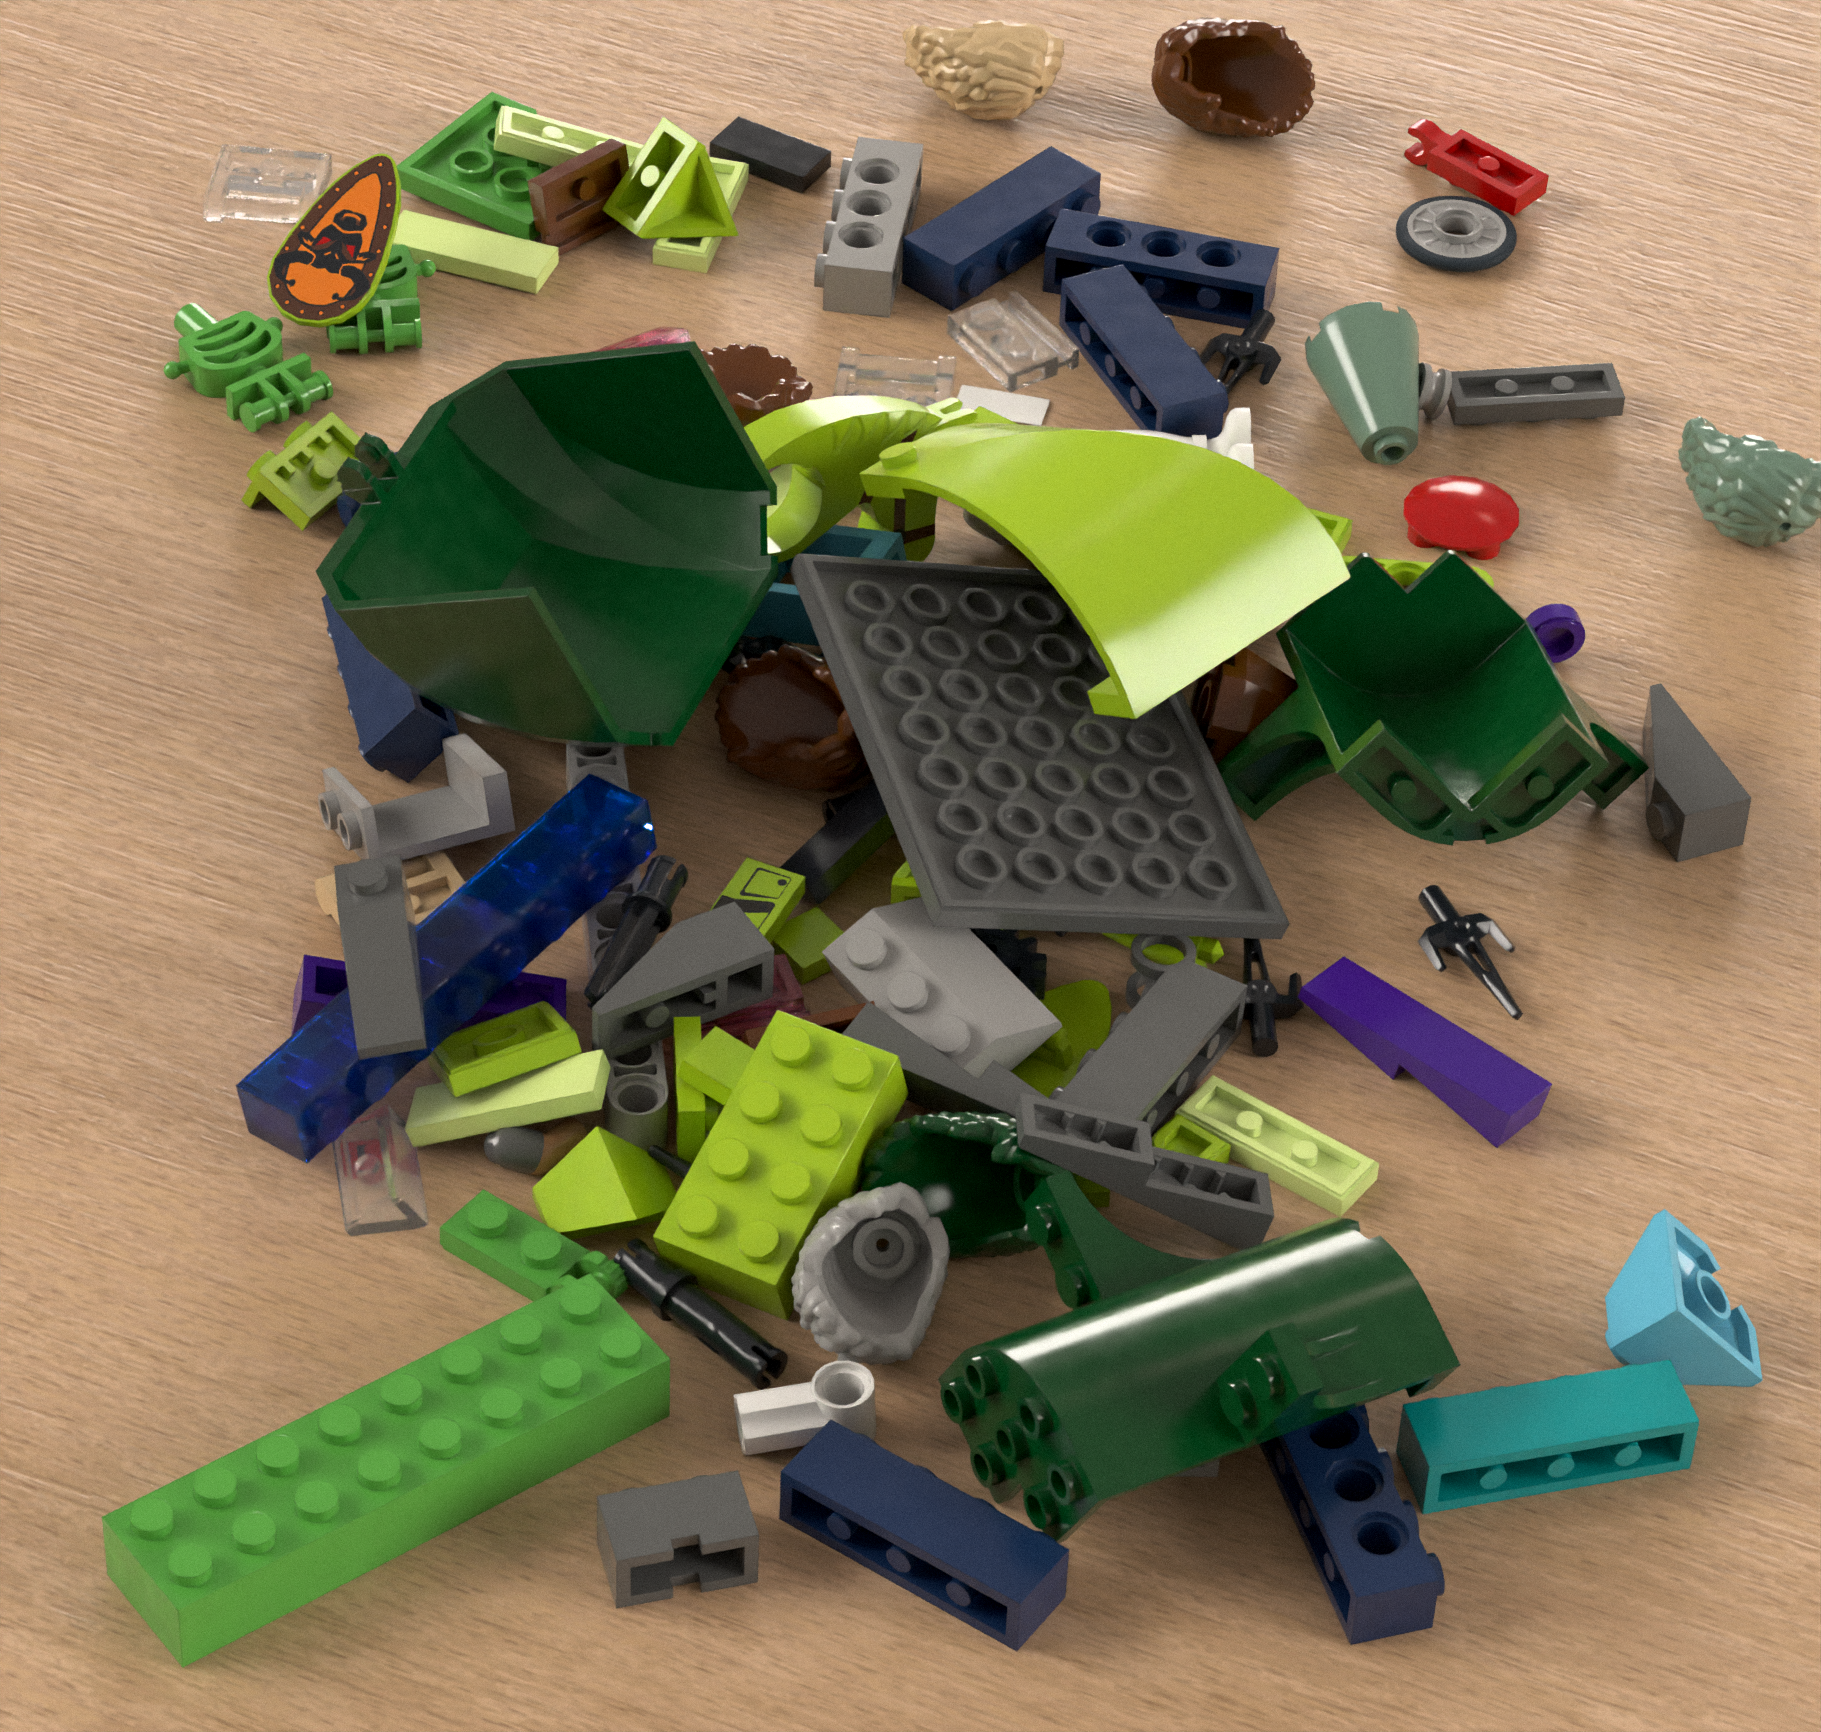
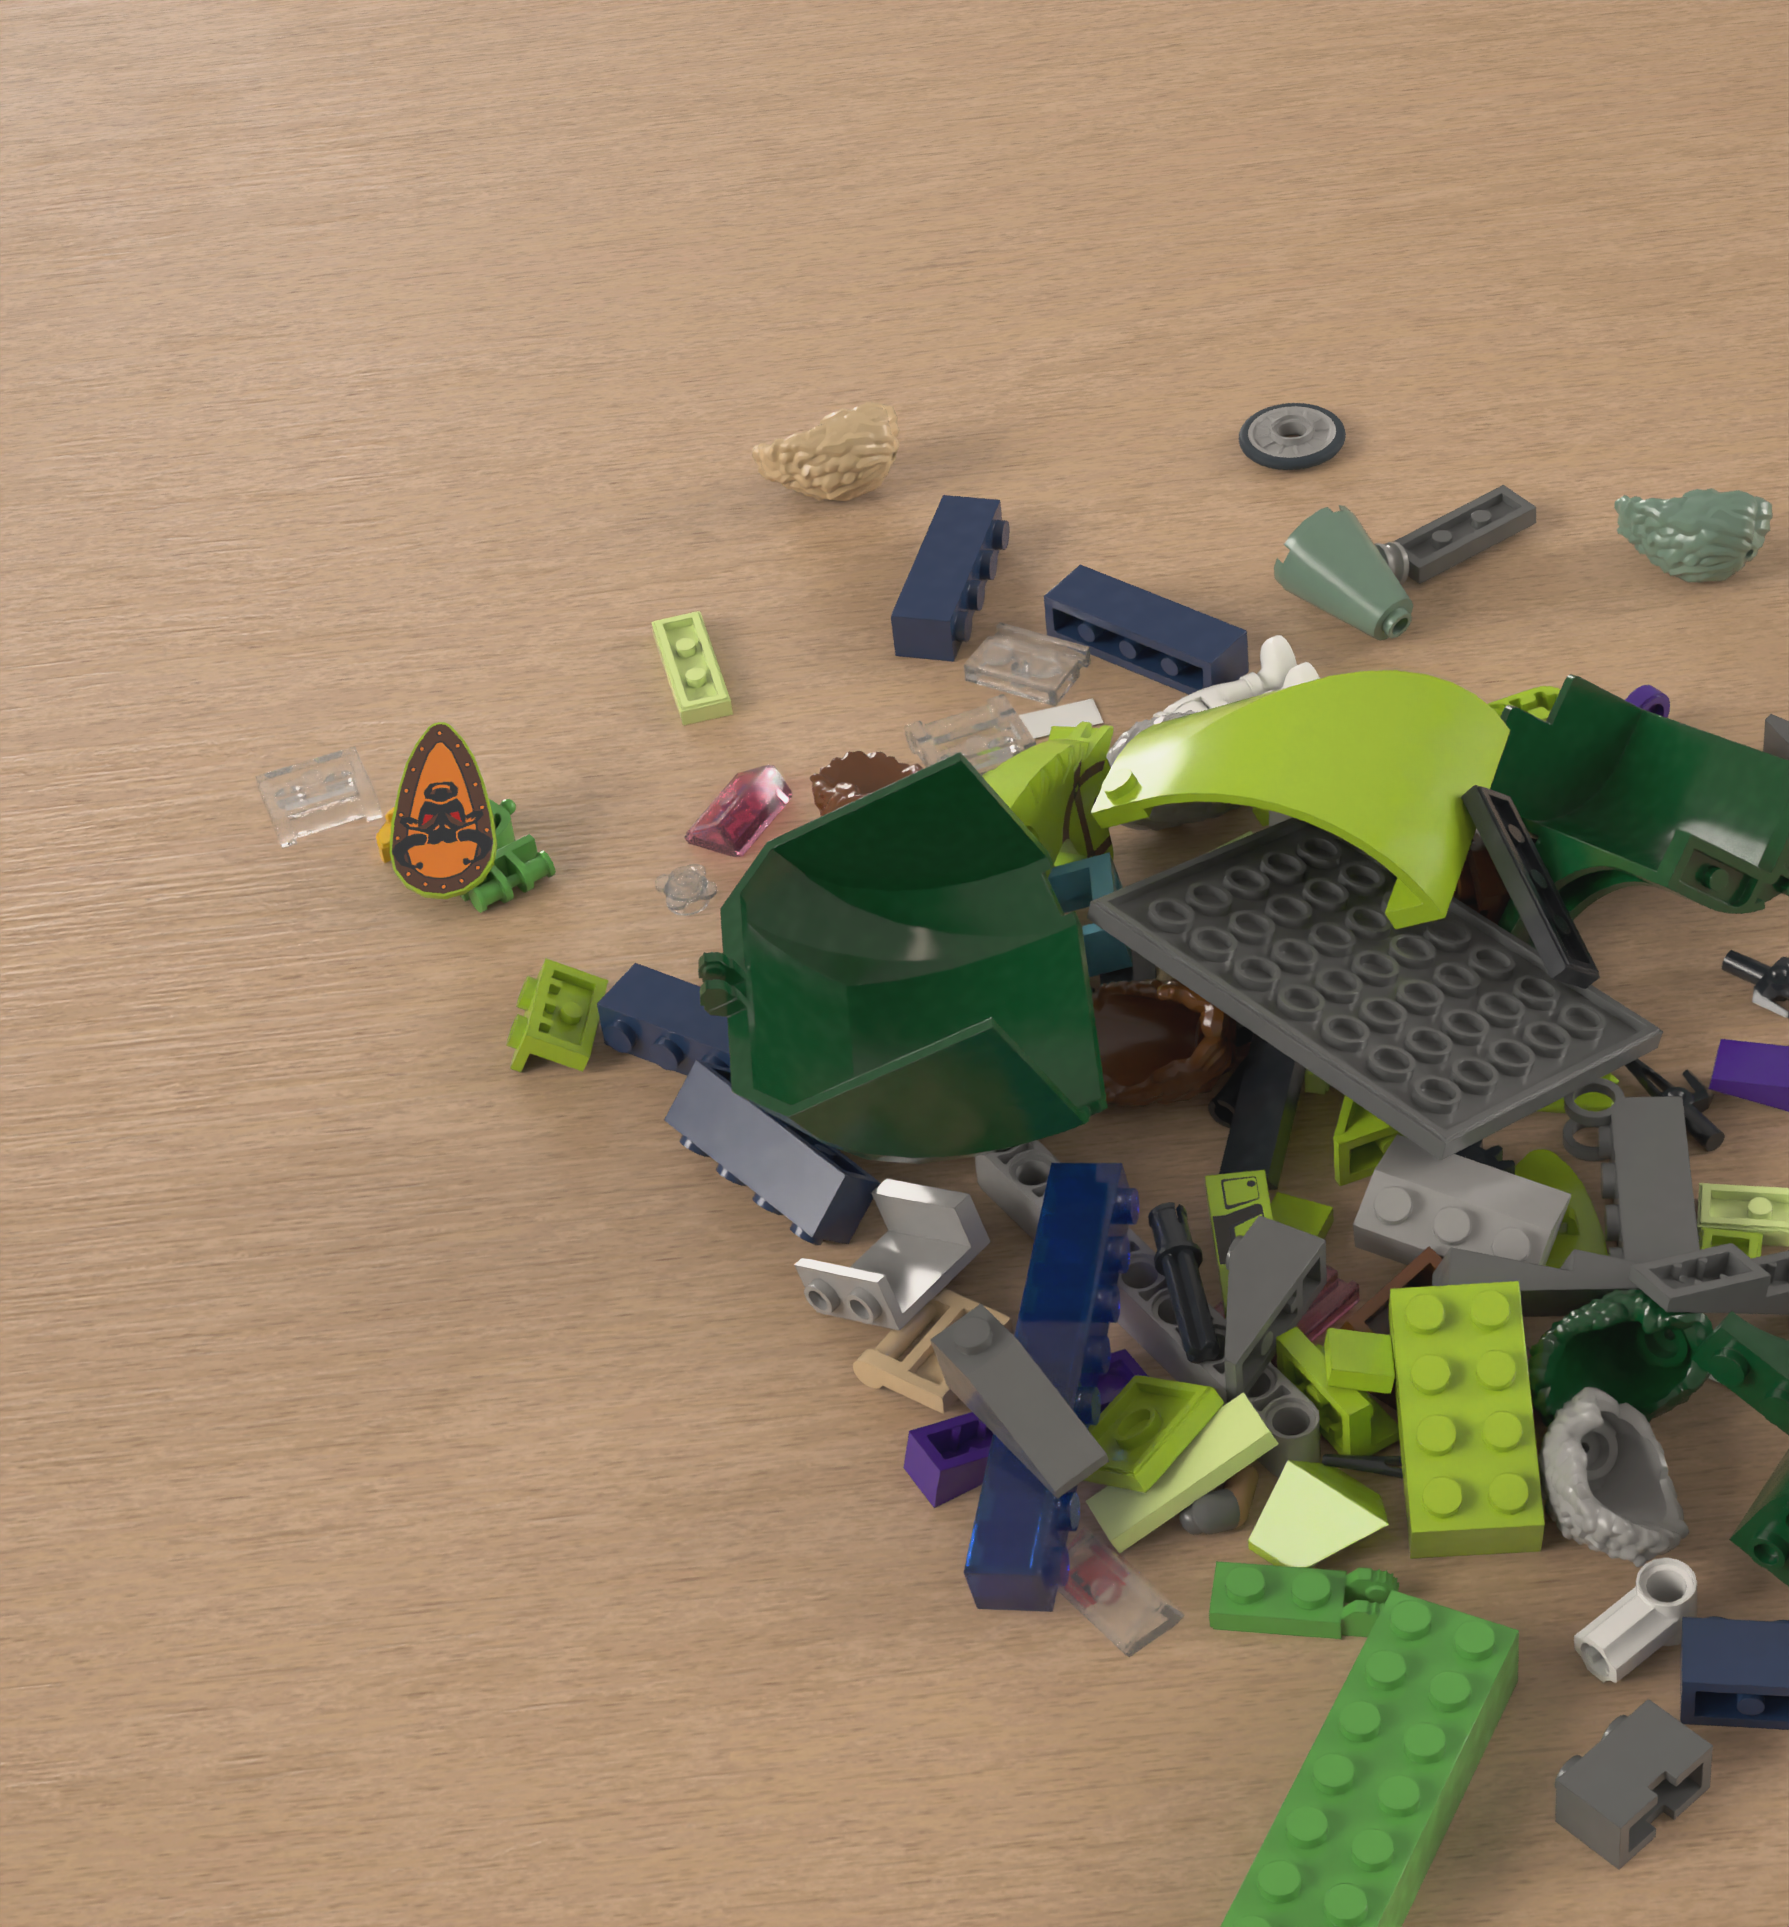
camera: 20 degrees left, 0 degrees up
(246, 365) = (402, 961): bright green torso -> none
(470, 177) = (498, 701): bright green plate -> none
(477, 252) = (547, 775): yellowish green tile -> none
(547, 139) = (556, 657): yellowish green tile -> none
(571, 196) = (598, 694): reddish brown plate -> none
(671, 190) = (671, 655): lime slope -> none
(678, 1297) = (1480, 1580): black pin -> none
(771, 154) = (713, 595): black tile -> none
(868, 227) = (845, 620): light grey brick -> none
(1181, 269) = (1135, 547): dark blue brick -> none
(1232, 77) = (1035, 384): reddish brown hair -> none
(1245, 351) = (1213, 593): black piece -> none
(1246, 728) = (1531, 887): none -> black tile
(1460, 515) = (1487, 652): red dish -> none
(1476, 167) = (1264, 378): red plate -> none

